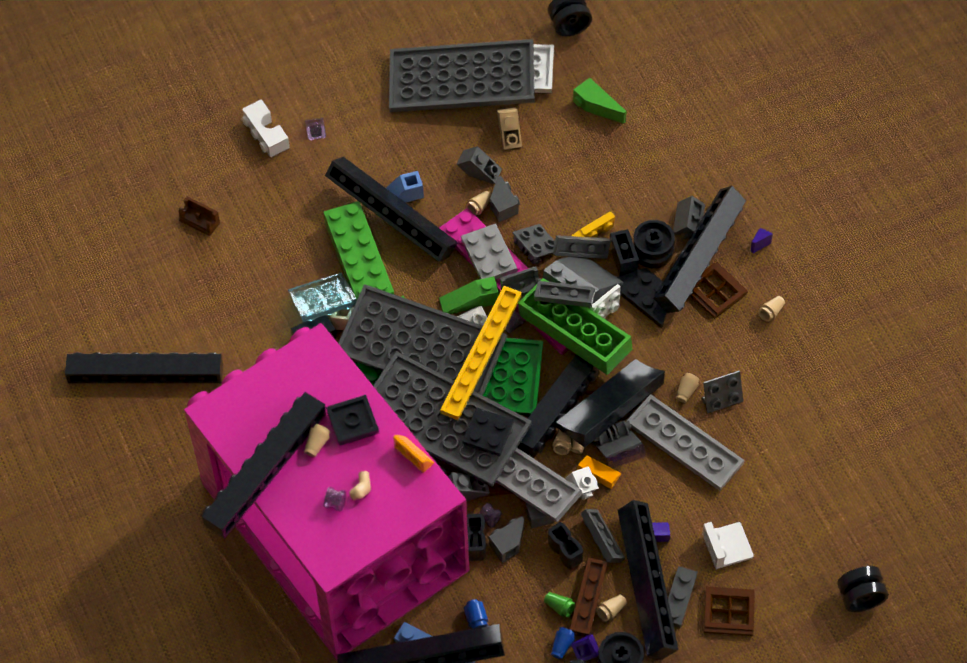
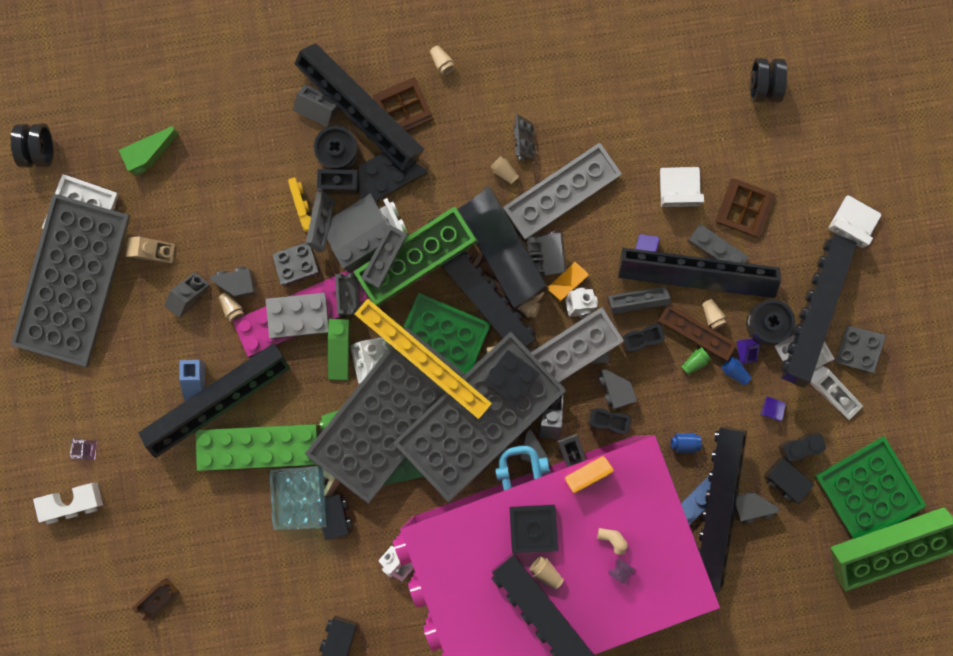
camera: 70 degrees left, 25 degrees up
(490, 515) = (586, 400): wheel -> none
(761, 240) = (362, 45): dark purple slope -> none

